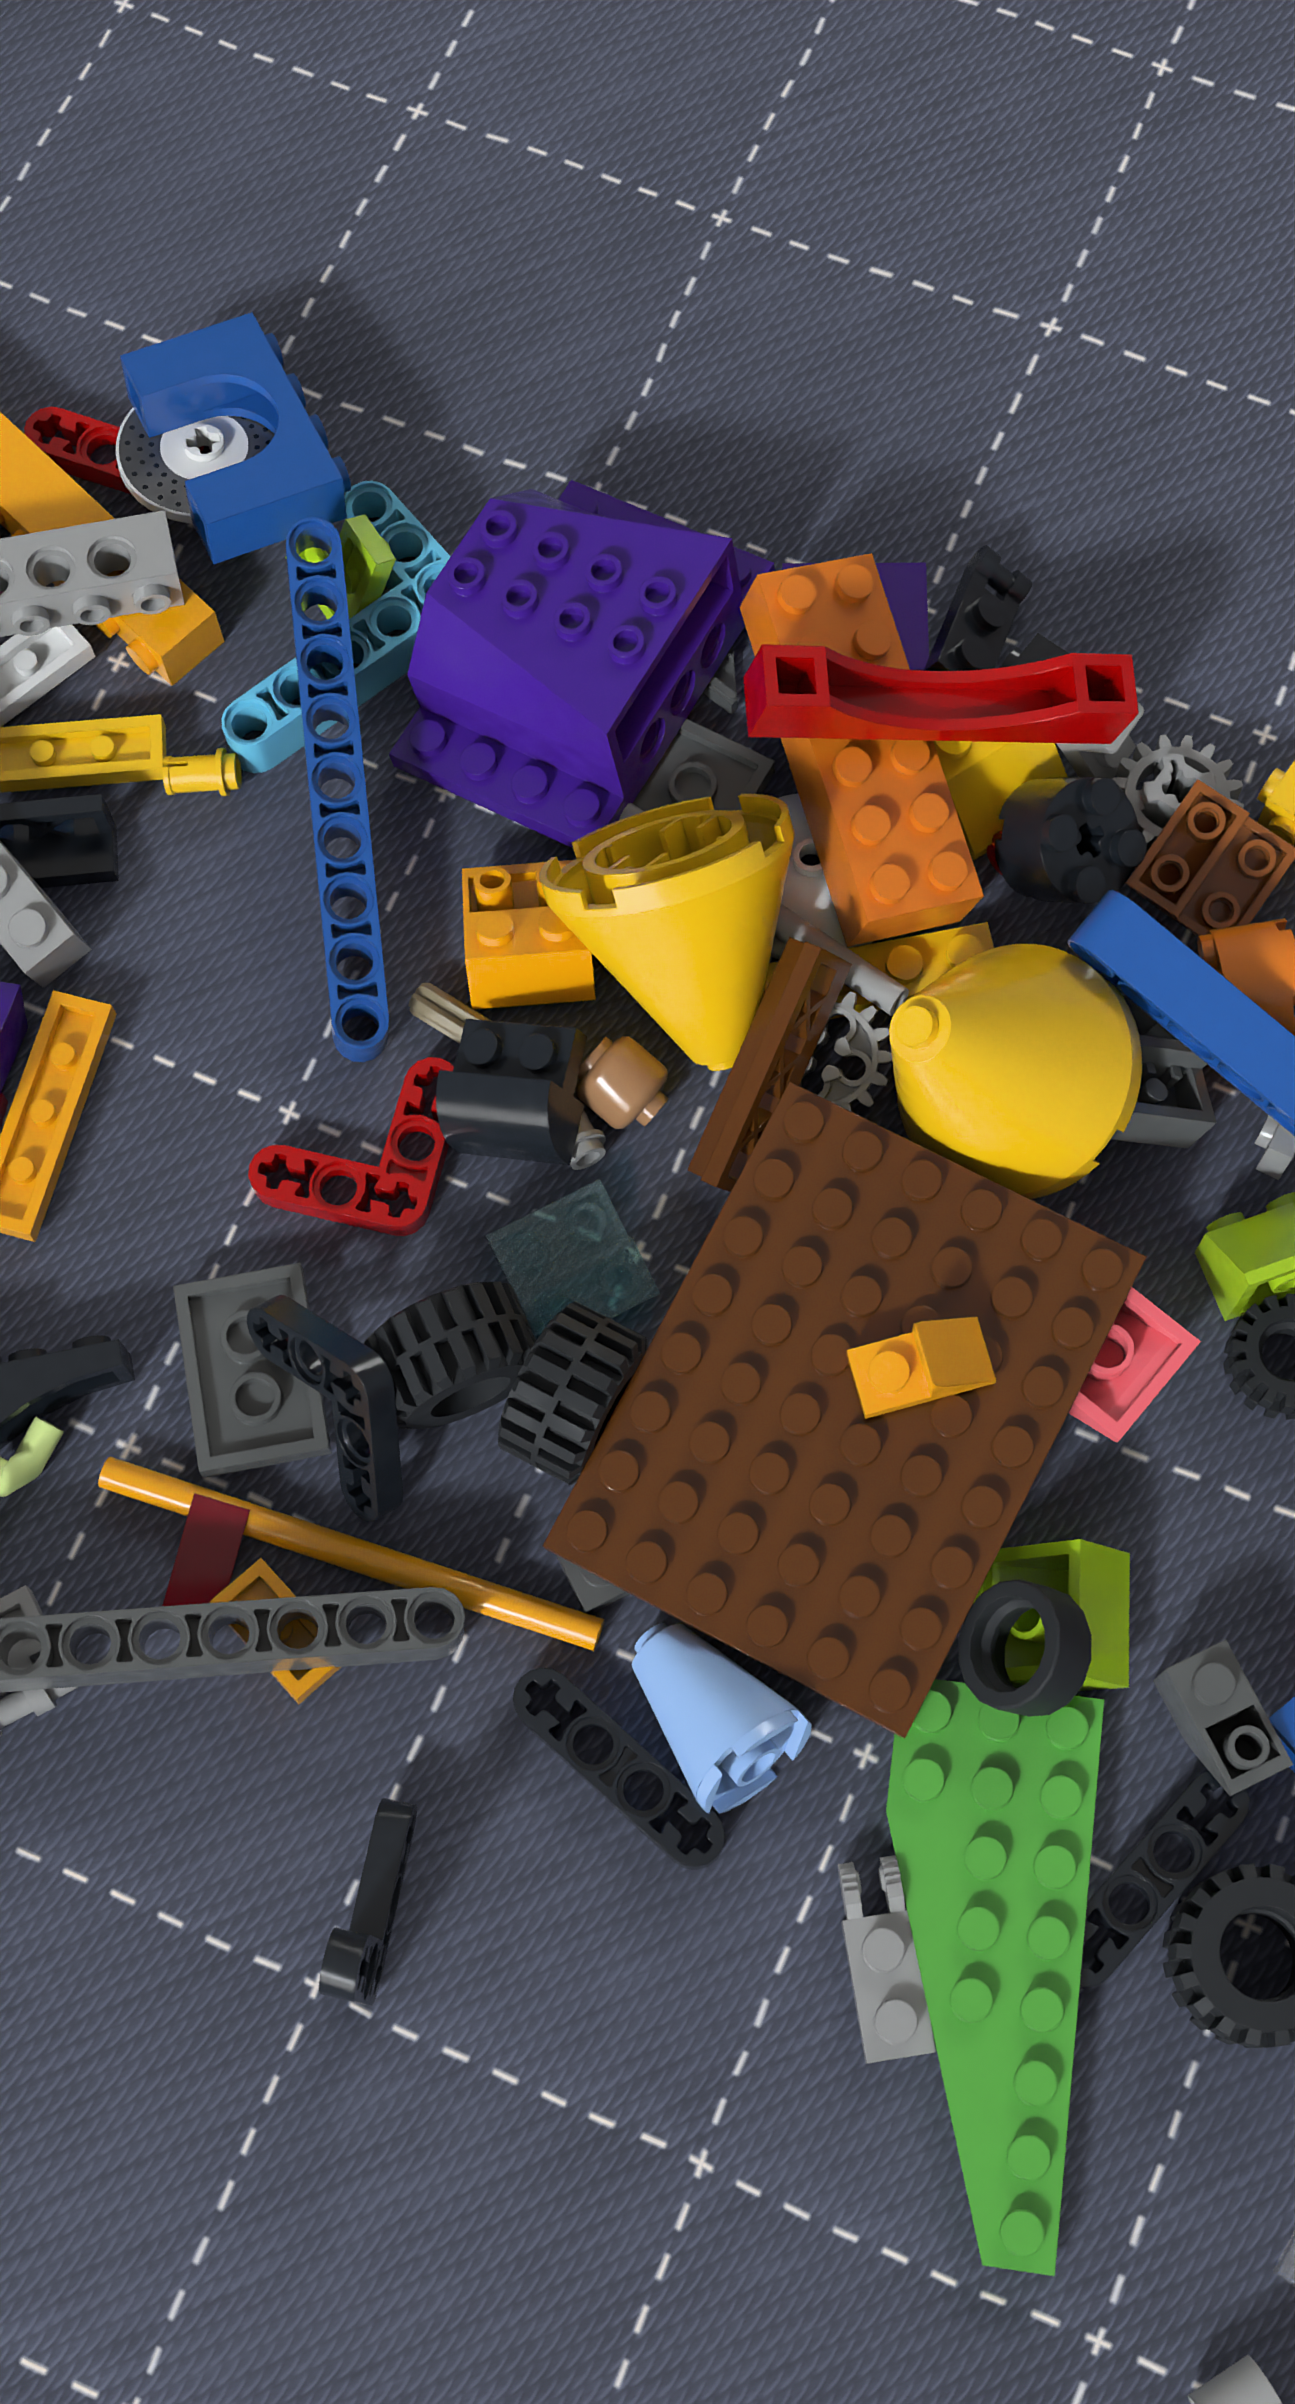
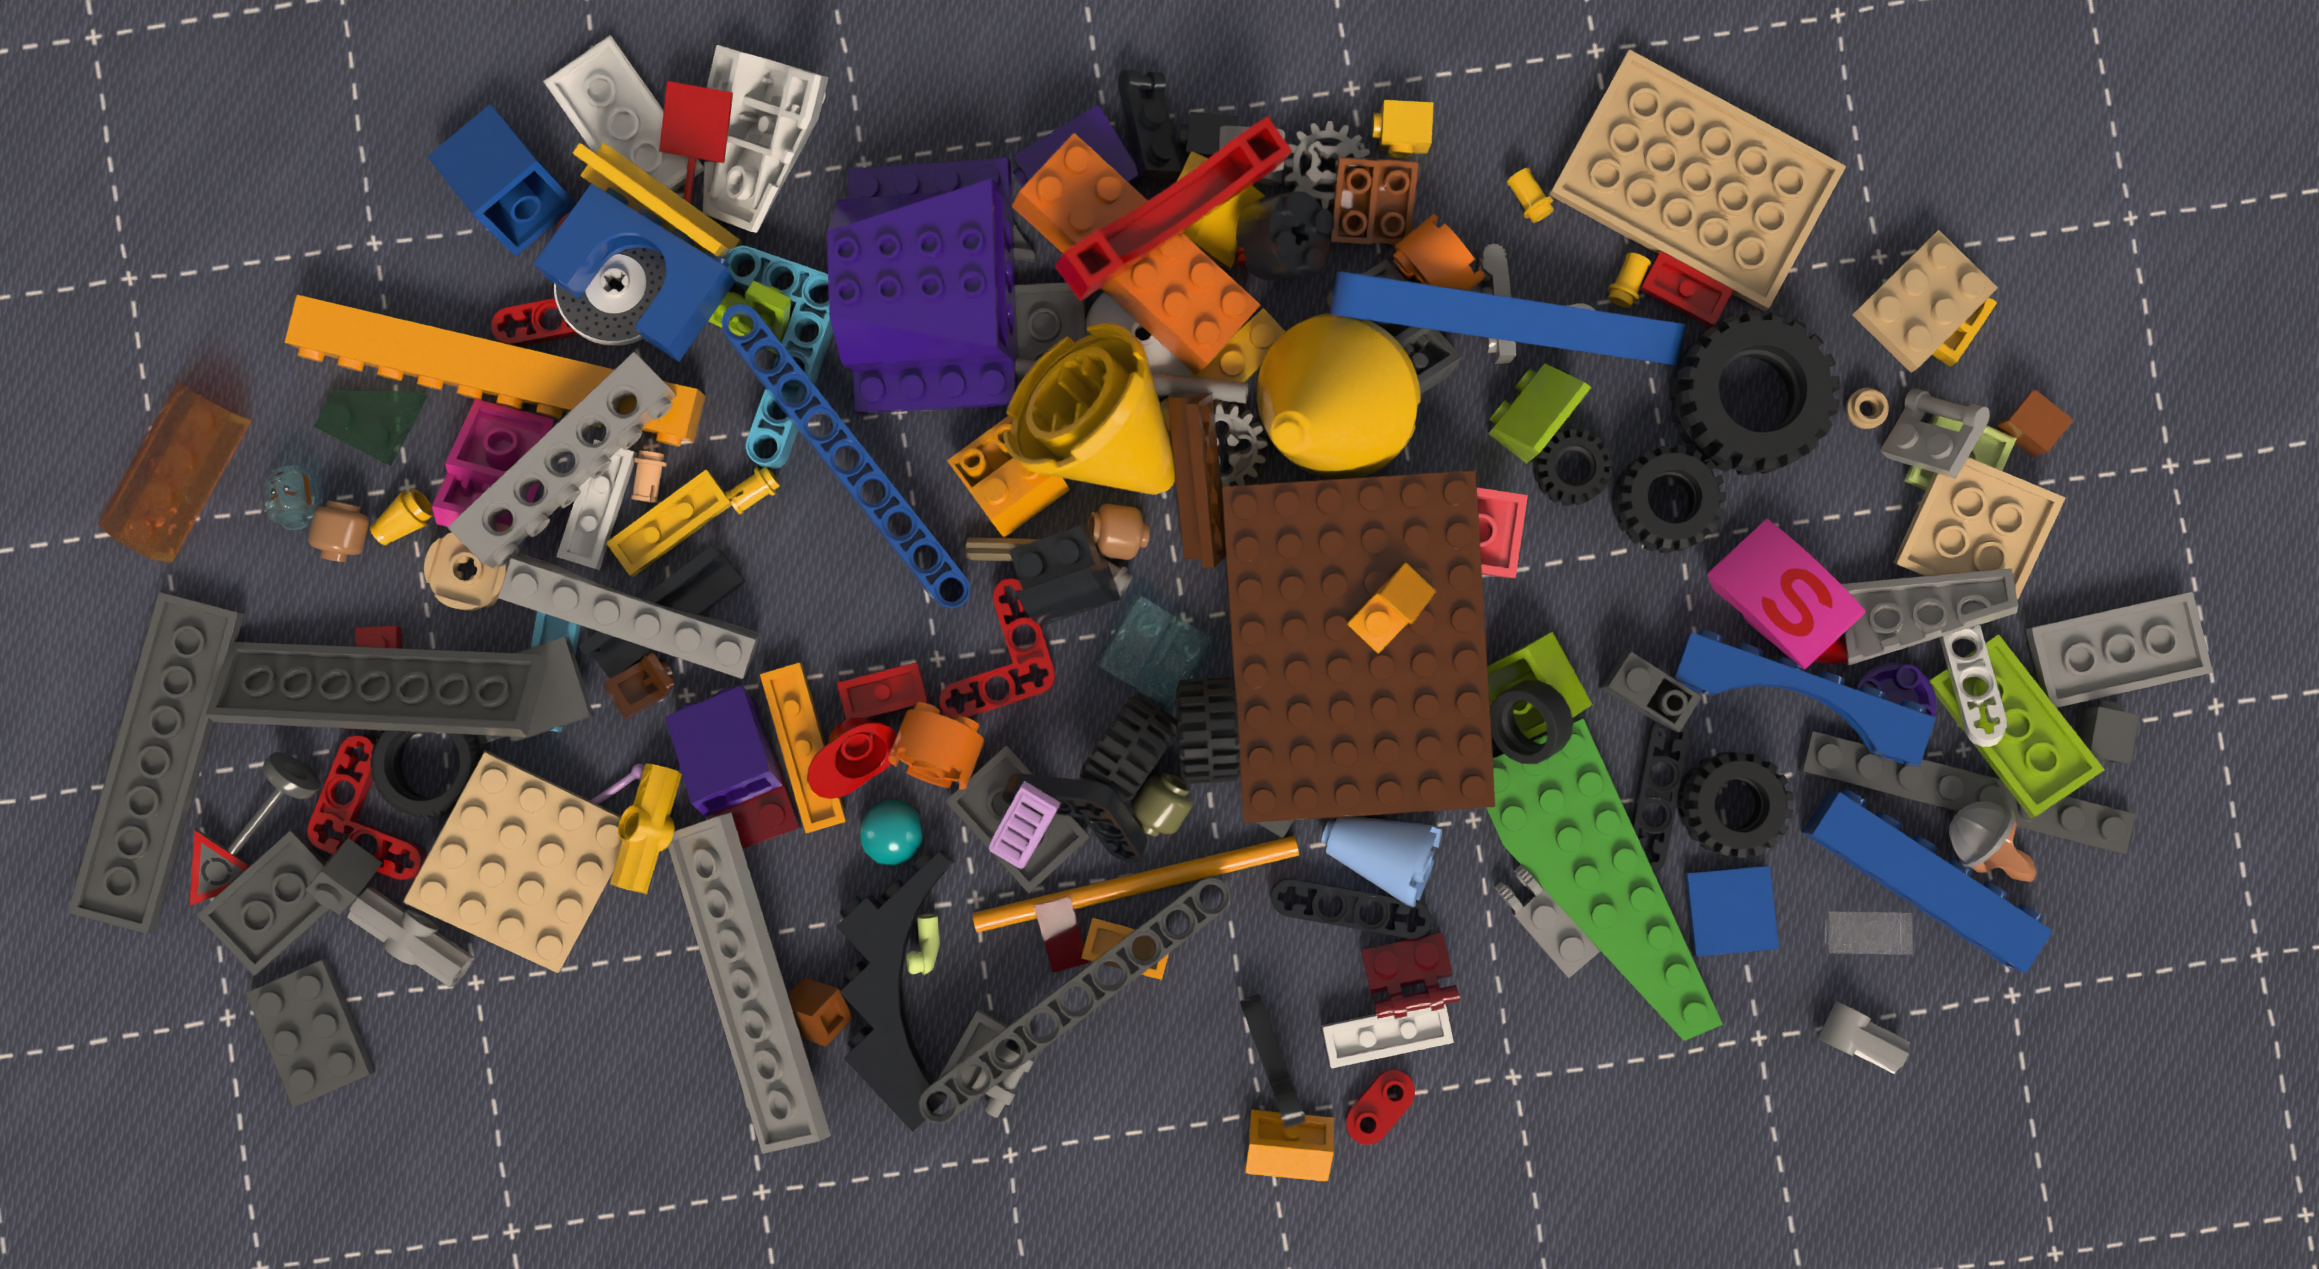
camera: 30 degrees left, 15 degrees up
(79, 1288) = (891, 832): none -> teal hair
(88, 686) = (648, 476): none -> light nougat pin
(91, 1156) = (852, 757): none -> red piece
(153, 264) = (502, 180): none -> blue slope
(190, 1106) = (883, 692): none -> red plate
(208, 1205) = (937, 746): none -> orange brick
(243, 1368) = (1023, 827): none -> lavender slope
(309, 358) = (615, 171): none -> yellow fence
(320, 2053) = (1293, 1152): none -> light orange panel
(342, 296) = (616, 107): none -> white tile
(418, 335) = (695, 126): none -> red piece
(451, 1464) = (1162, 804): none -> olive head
(483, 2080) = (1379, 1106): none -> red plate
(496, 376) = (767, 130): none -> white wedge
(558, 1977) = (1375, 1038): none -> white plate
(647, 1896) = (1409, 964): none -> dark red plate
(1165, 2117) = (1731, 910): none -> blue tile

